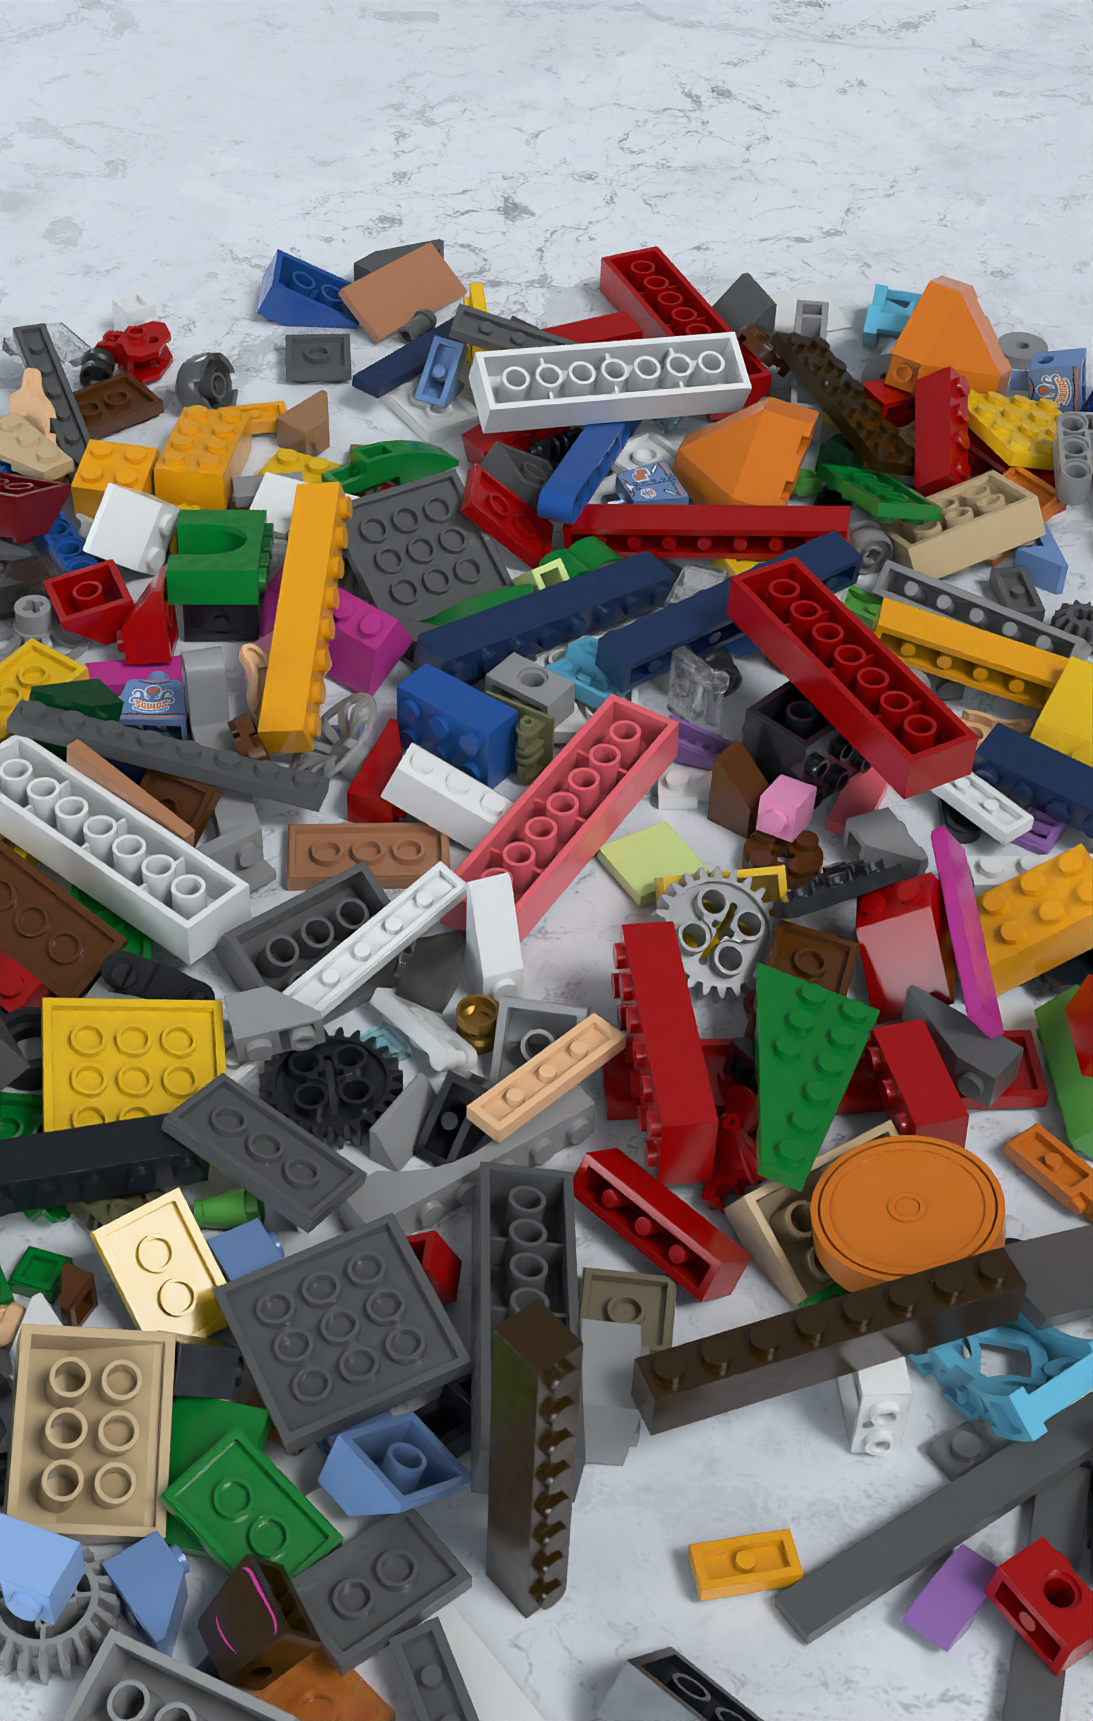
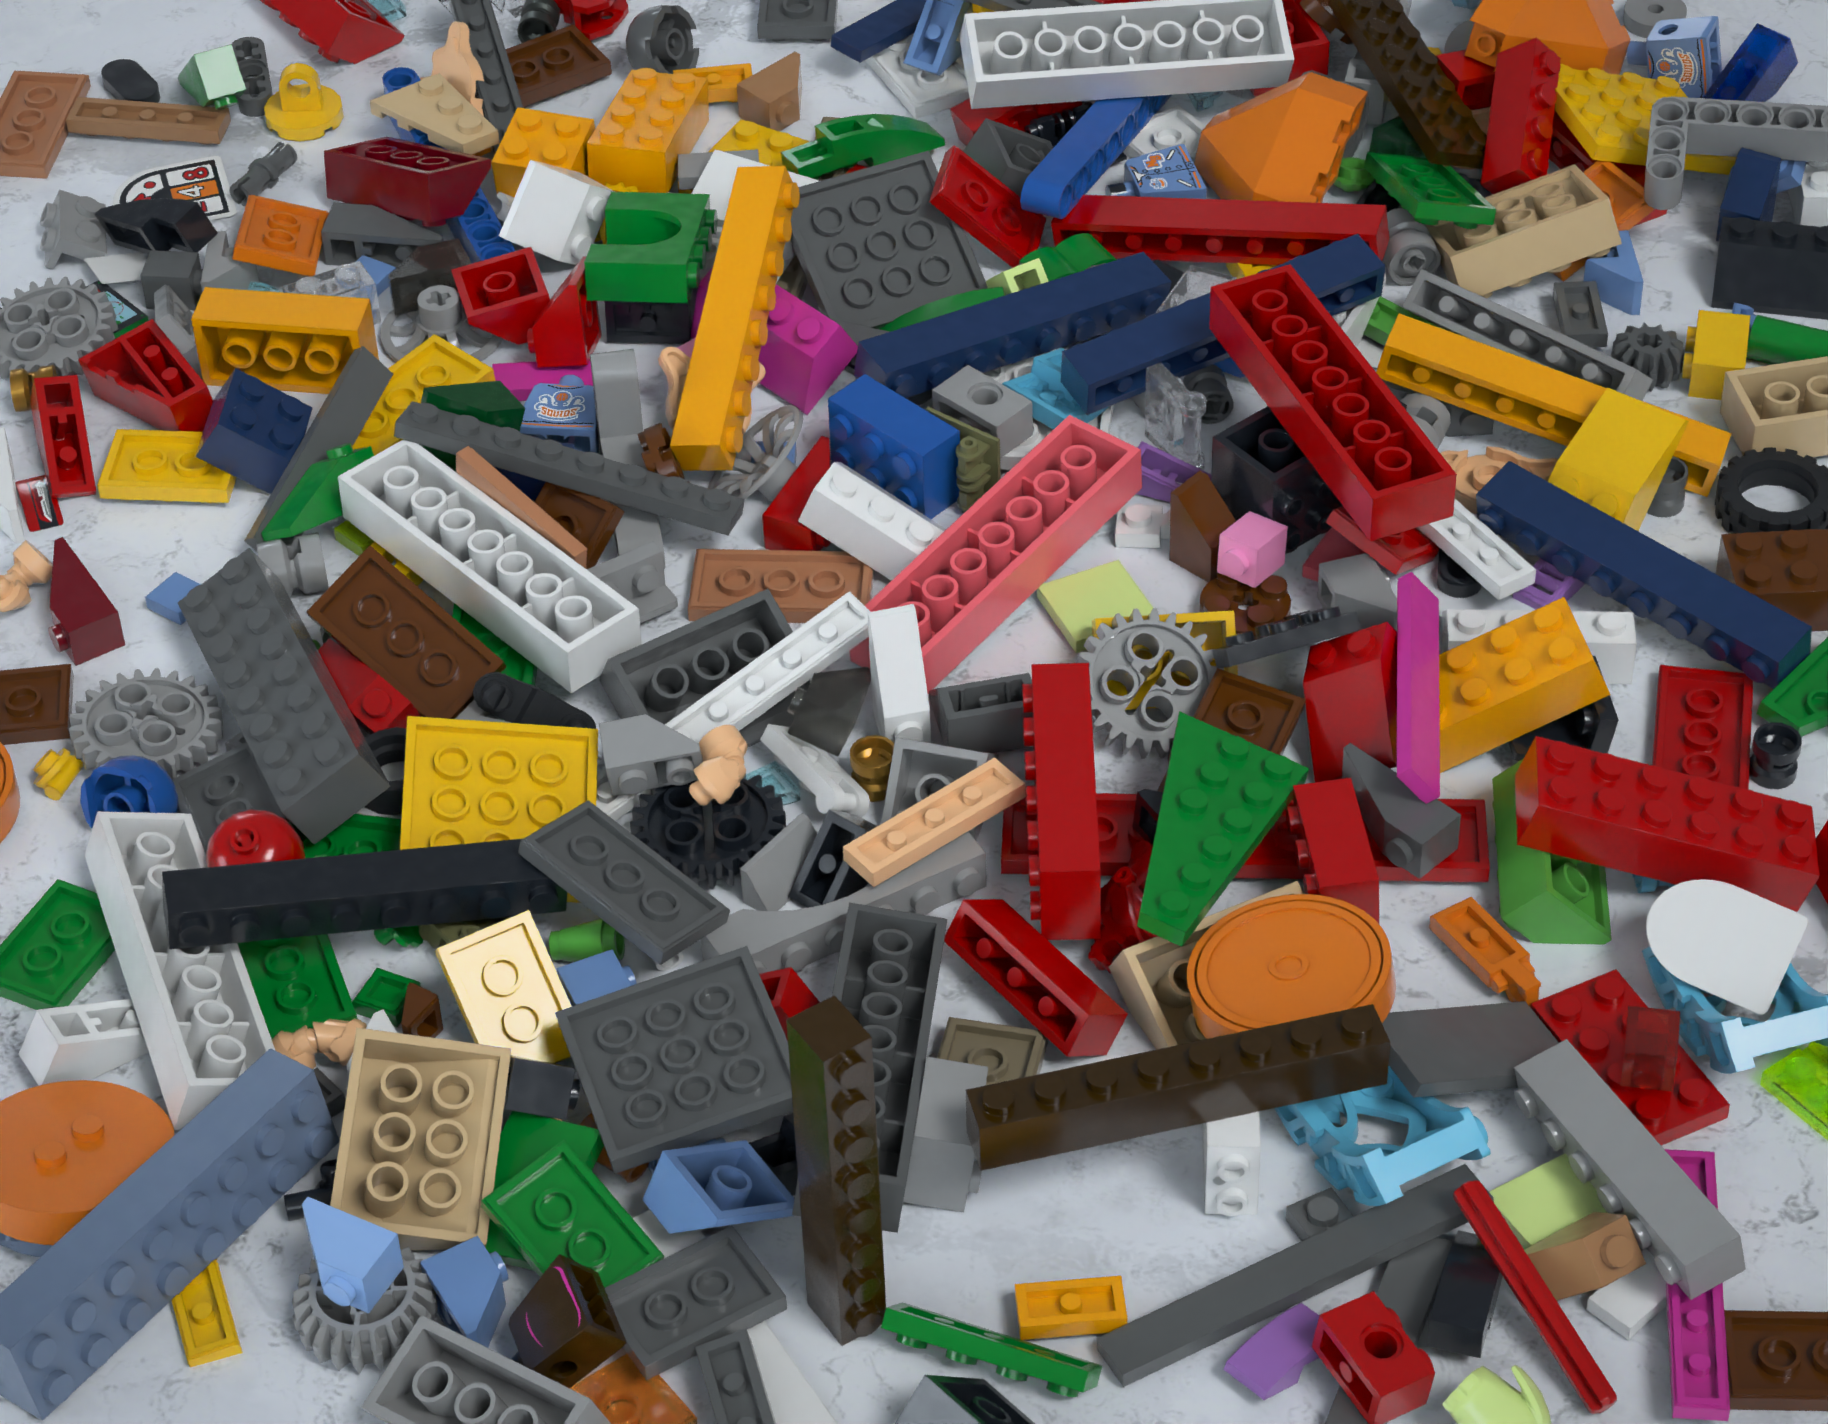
camera: 10 degrees right, 0 degrees up
(341, 1031) = (721, 766): none -> light nougat arm
(571, 968) = (982, 714): none -> dark grey slope
(658, 1610) = (969, 1342): none -> green plate
(911, 810) = (1395, 552): none -> red tile

